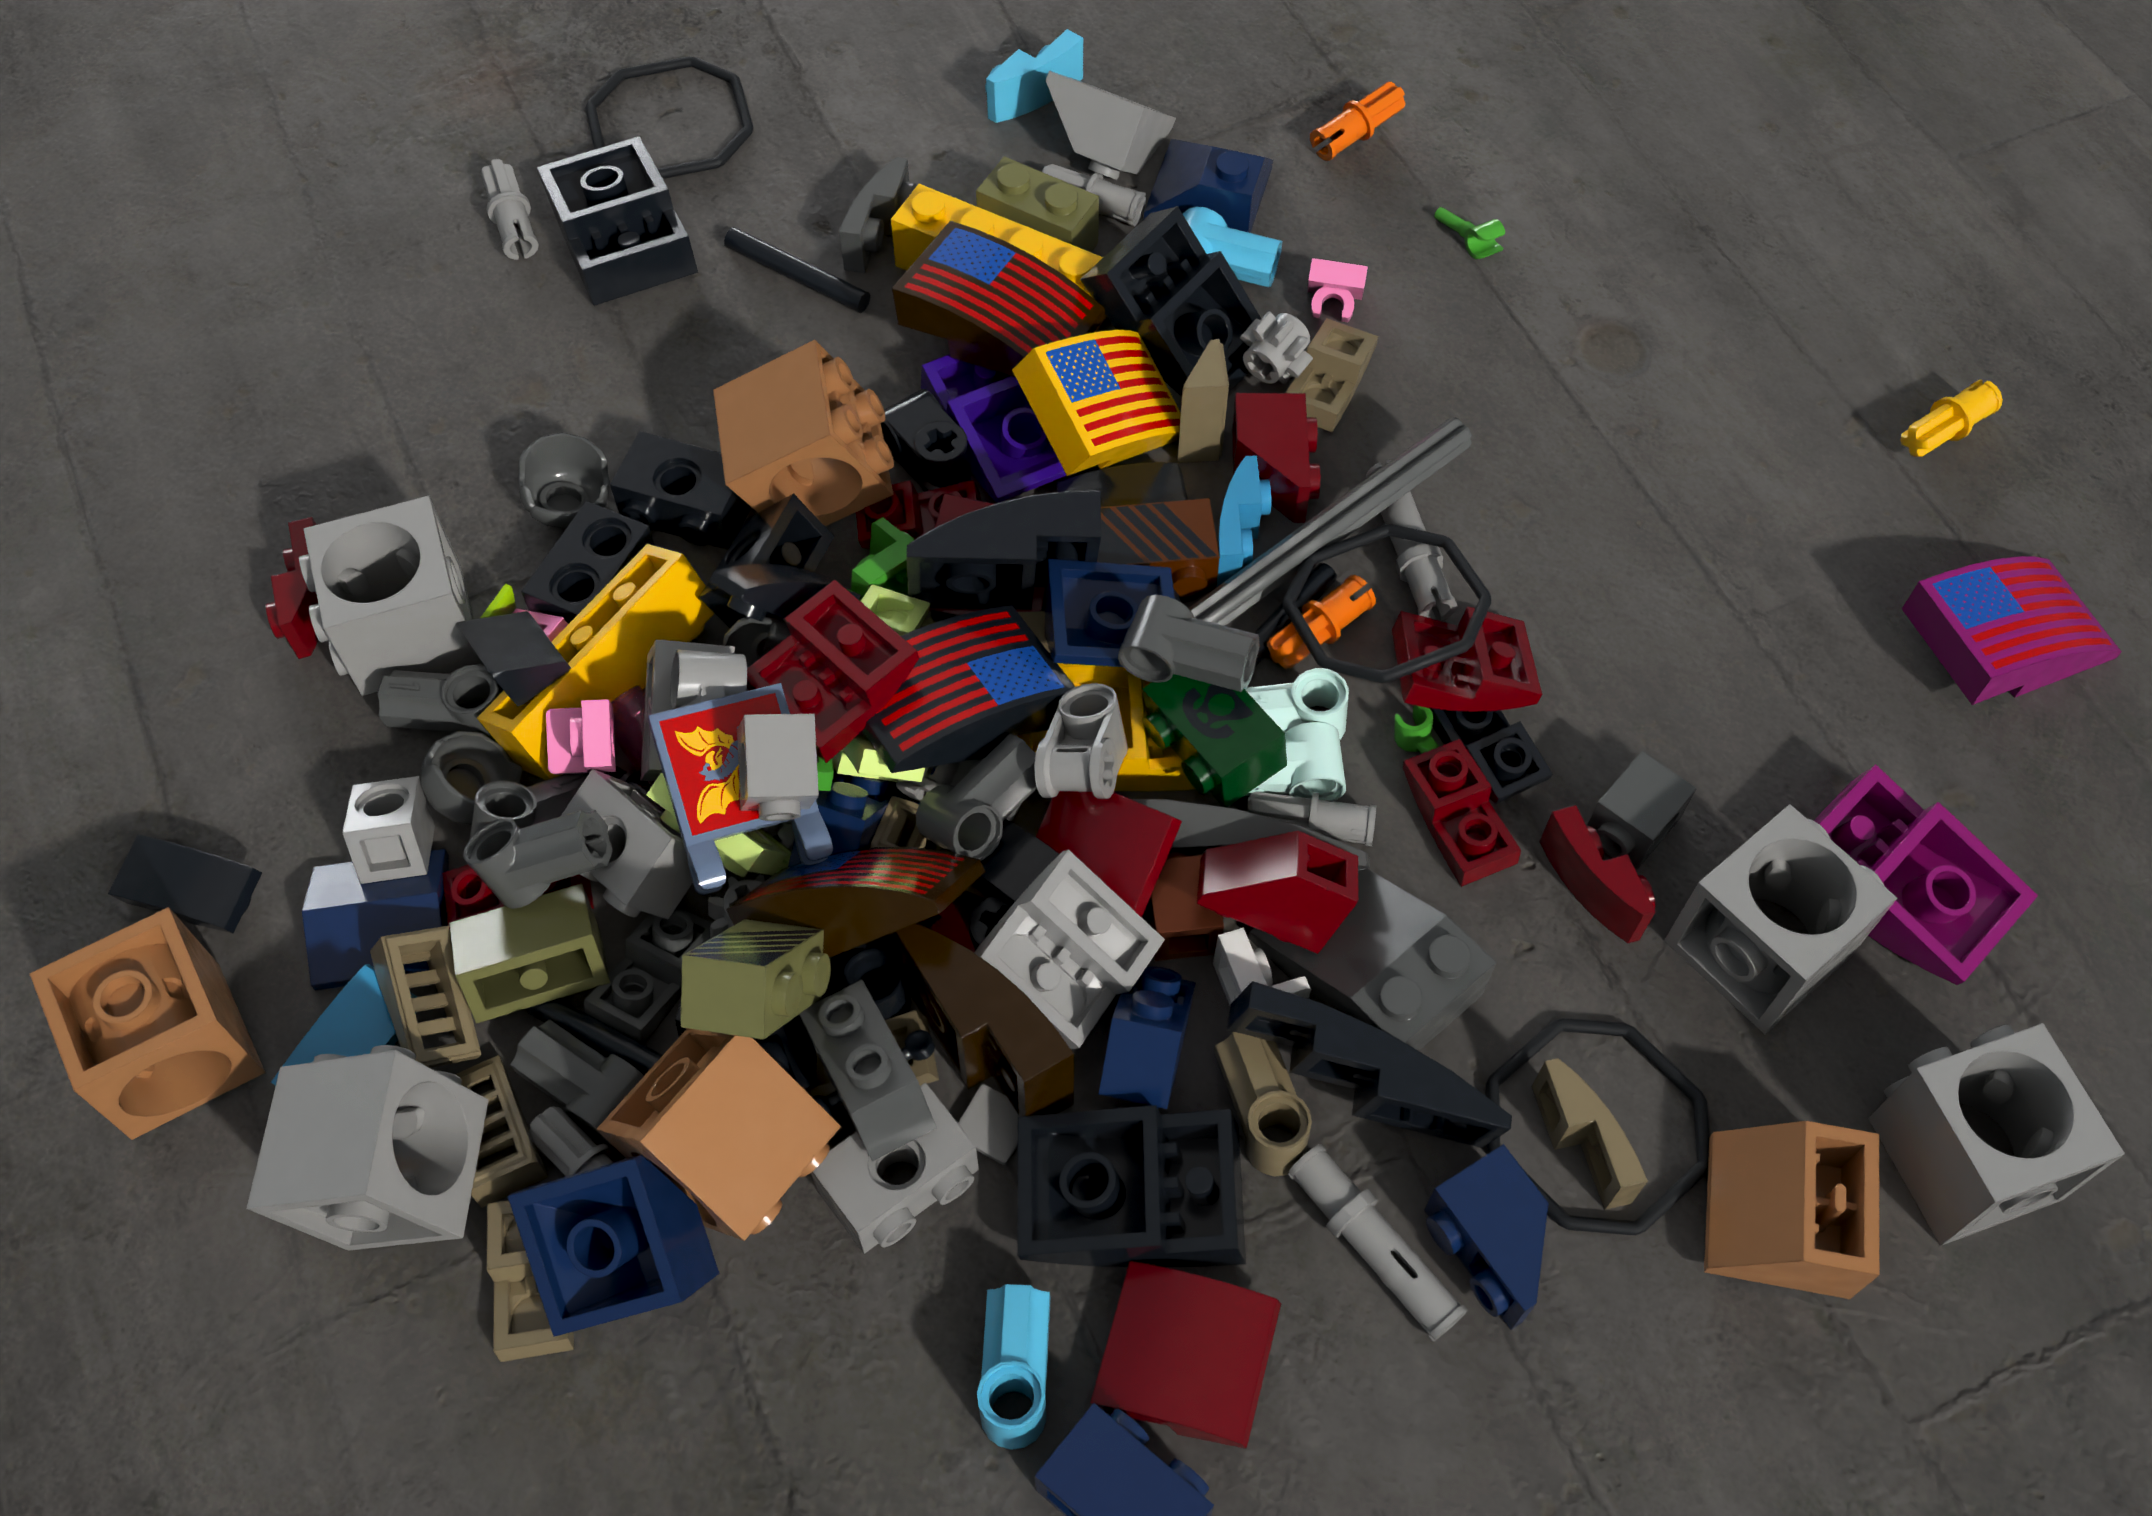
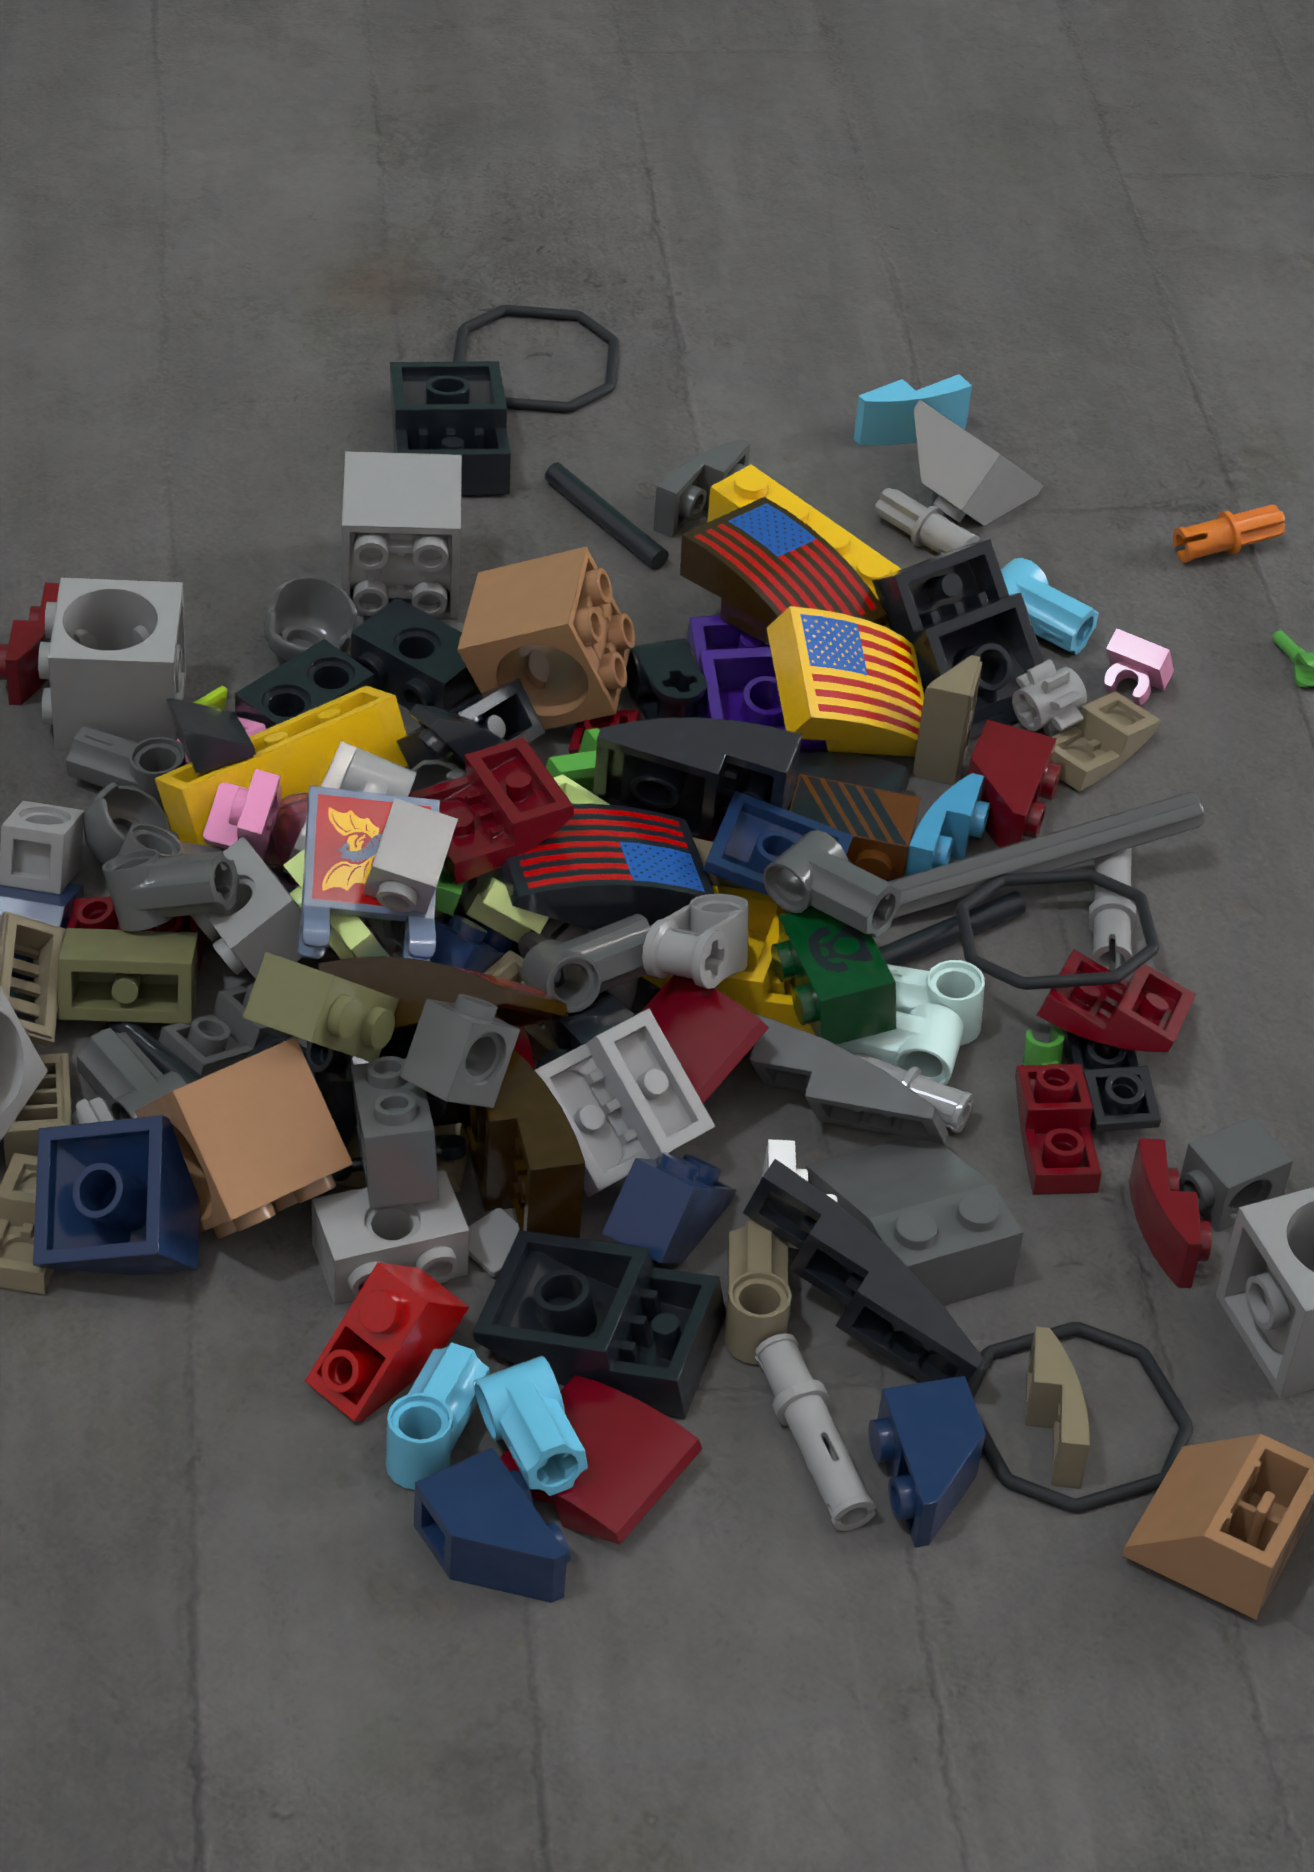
camera: 15 degrees right, 15 degrees down
(509, 209) = (349, 392): light grey axle -> none
(619, 357) = (402, 531): none -> light grey brick
(912, 984) = (460, 1051): none -> dark grey brick
(935, 1294) = (385, 1339): none -> red slope
(1041, 203) = (867, 514): olive brick -> none
(1109, 1342) = (529, 1415): none -> medium azure piece
(1176, 916) = (746, 1114): copper brick -> none
(1213, 179) = (1063, 546): dark blue slope -> none
(1282, 886) = (841, 1110): dark red slope -> none
(1325, 620) = (994, 936): orange axle -> none

